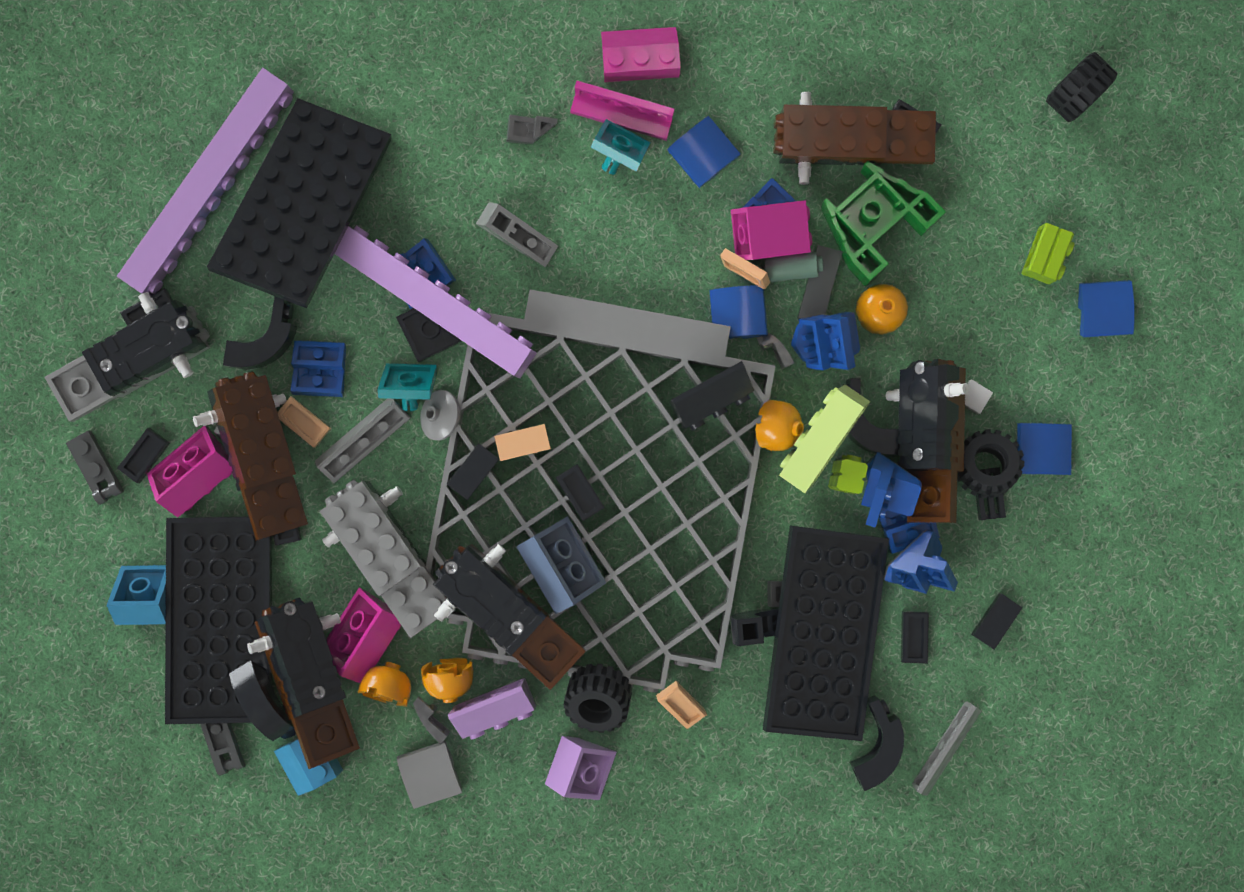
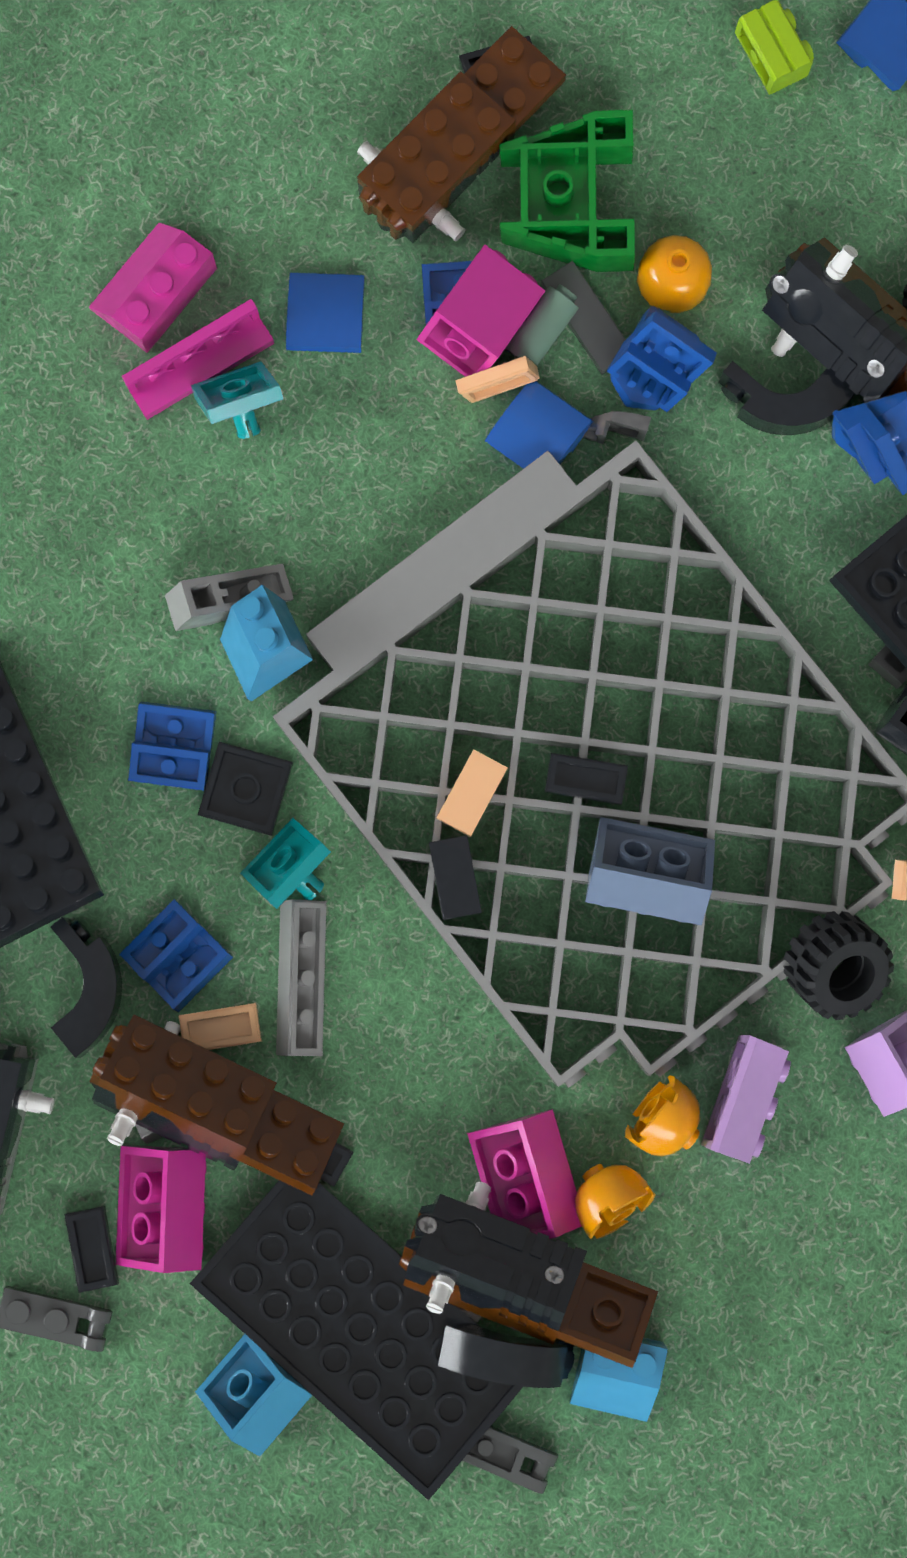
camera: 45 degrees left, 5 degrees down
(383, 552) = (460, 1063): light grey piece -> none
(429, 774) = (756, 1243): light grey slope -> none
(433, 726) = (681, 1181): flat silver slope -> none
(435, 301) = (225, 749): lavender brick -> none
(439, 415) = (365, 857): light grey dish -> none
(505, 613) = (651, 980): piece -> none
(507, 272) = (263, 642): none -> dark azure slope
(527, 129) = (122, 482): flat silver slope -> none
(713, 396) = (612, 534): black slope -> none
(779, 426) = (709, 494): light orange cylinder -> none
(824, 438) = (767, 455): yellowish green brick -> none
(848, 475) = (829, 467): lime brick -> none
(977, 397) = (868, 257): white tile -> none

